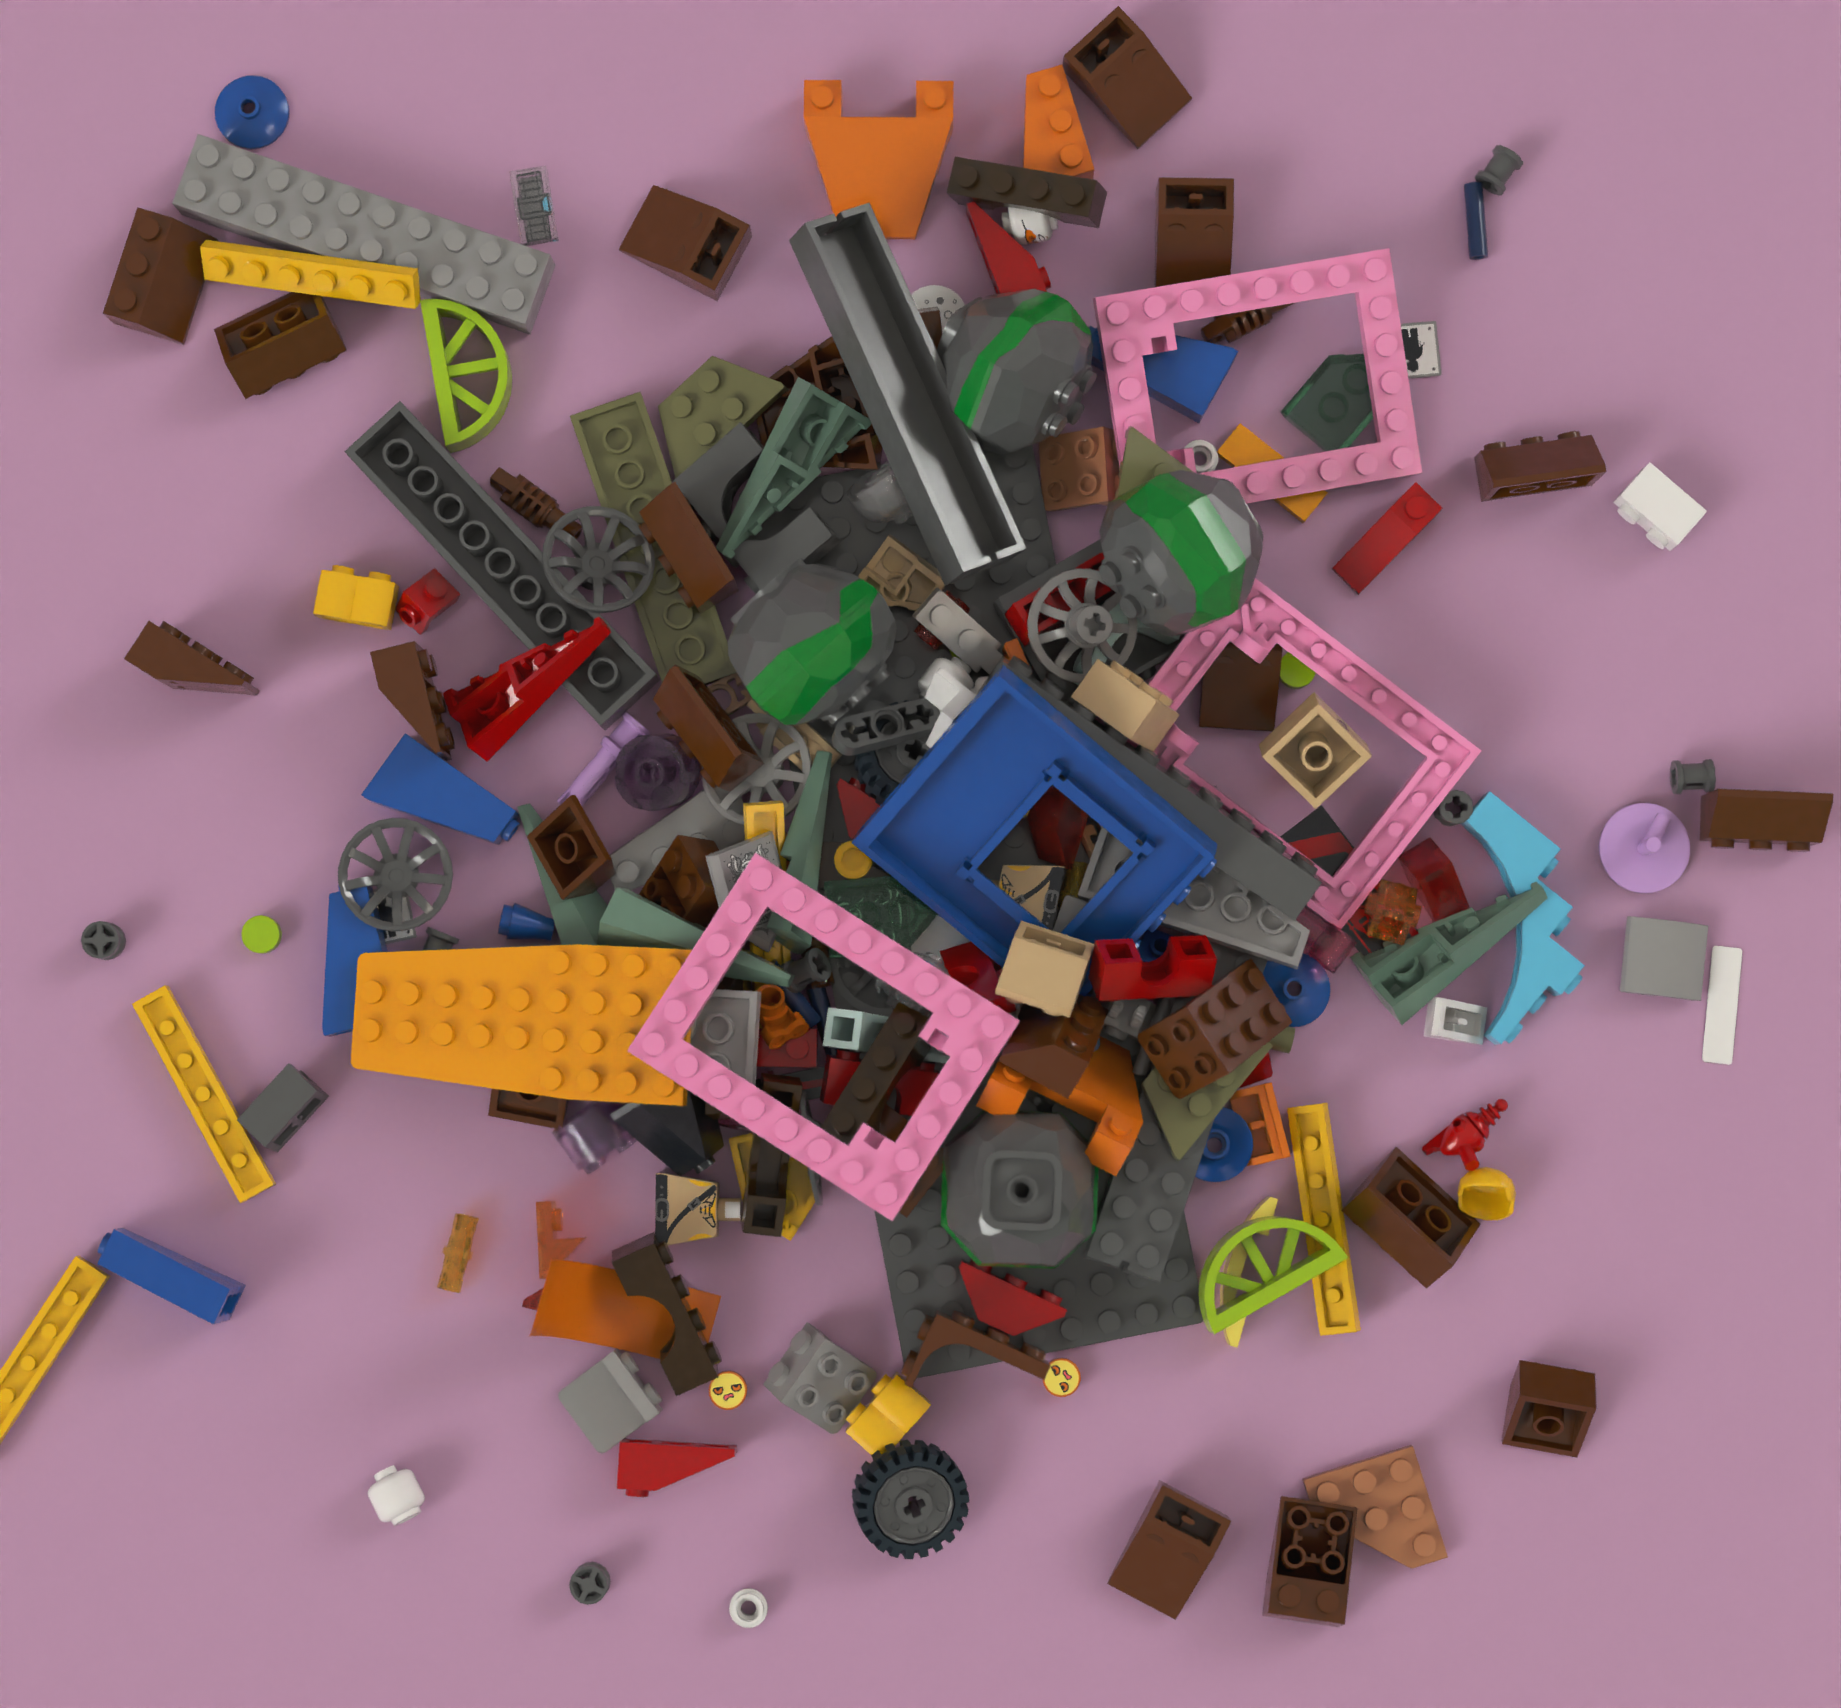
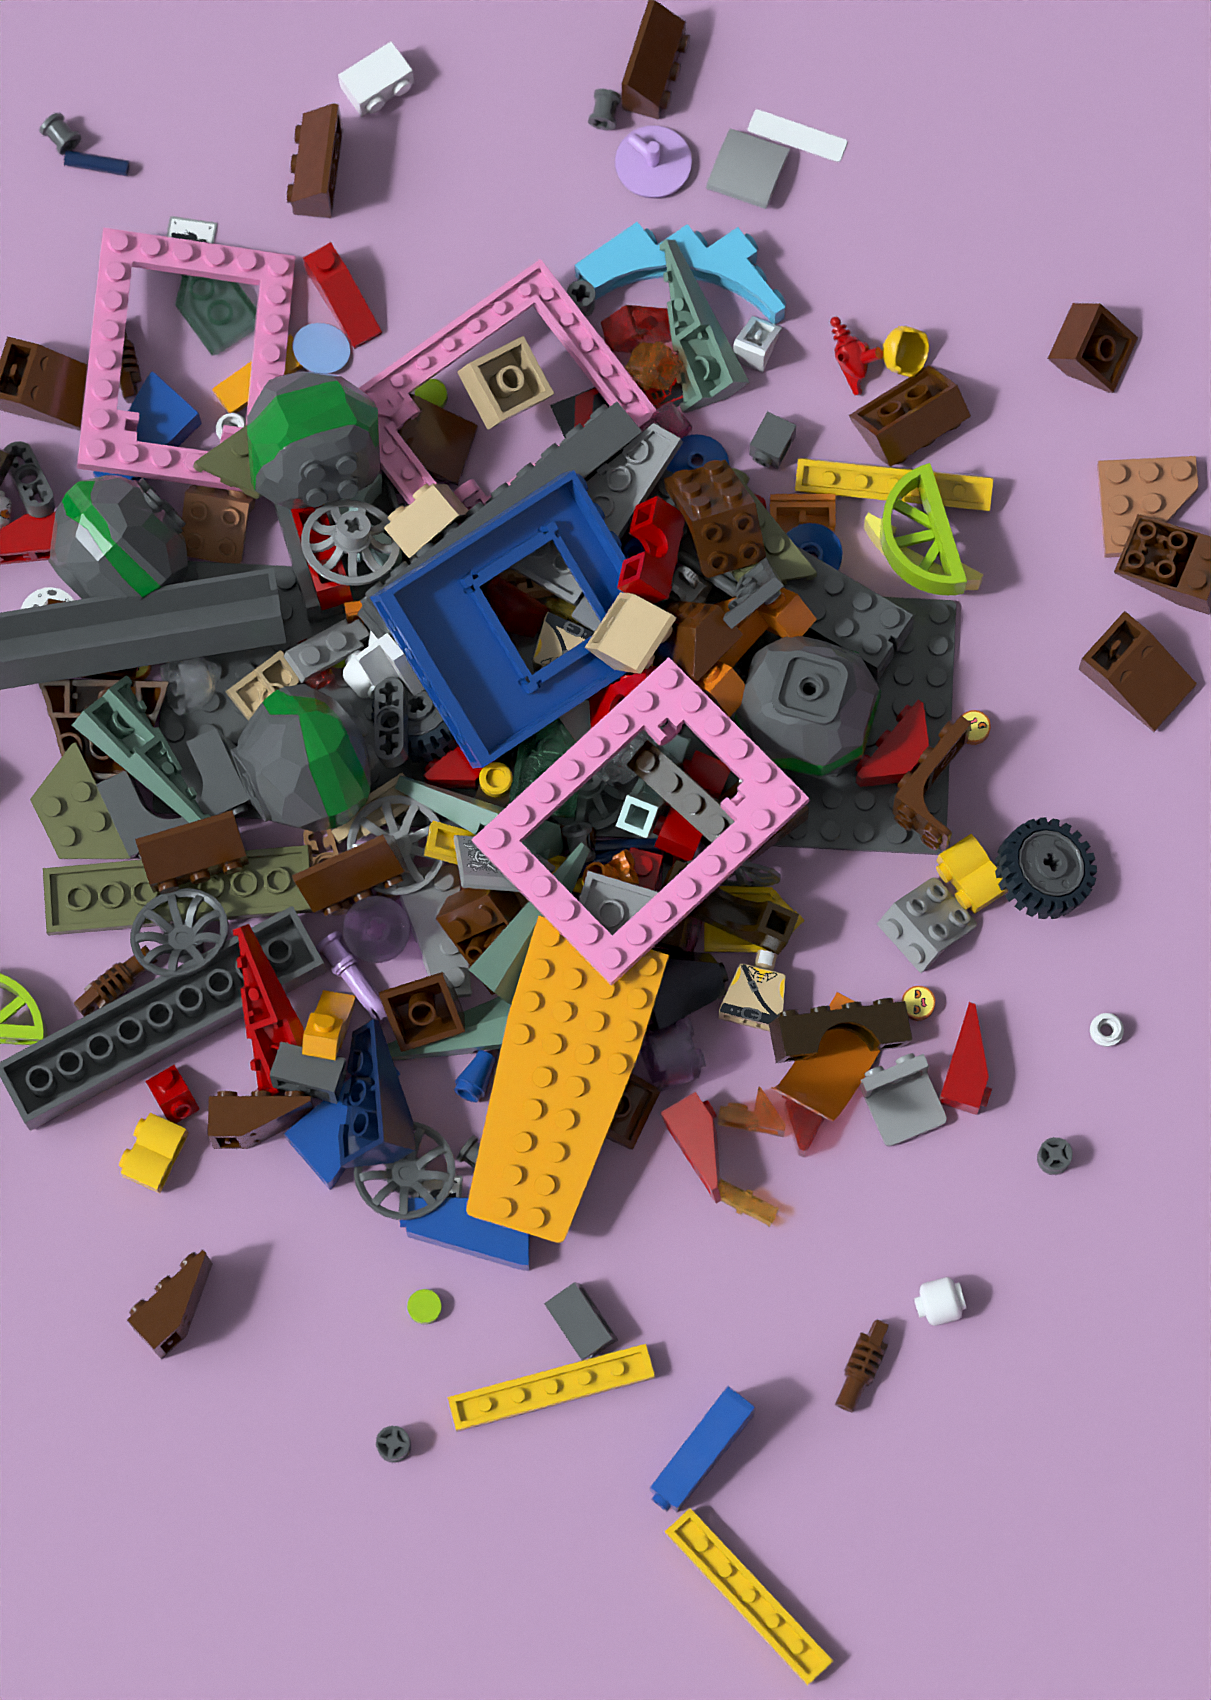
camera: 75 degrees left, 10 degrees down
(308, 1426) = (862, 1365): none -> reddish brown hinge
(445, 828) = (377, 1115): none -> dark blue wedge
(471, 742) = (313, 1075): none -> dark grey hinge
(511, 1184) = (695, 1133): none -> slope
(533, 749) = (328, 1025): none -> light orange slope
(1072, 264) = (28, 490): none -> dark grey beam
(1124, 1101) = (753, 589): none -> dark grey wing
(1320, 531) = (321, 348): none -> light blue sticker
(1339, 1067) = (772, 441): none -> dark grey brick

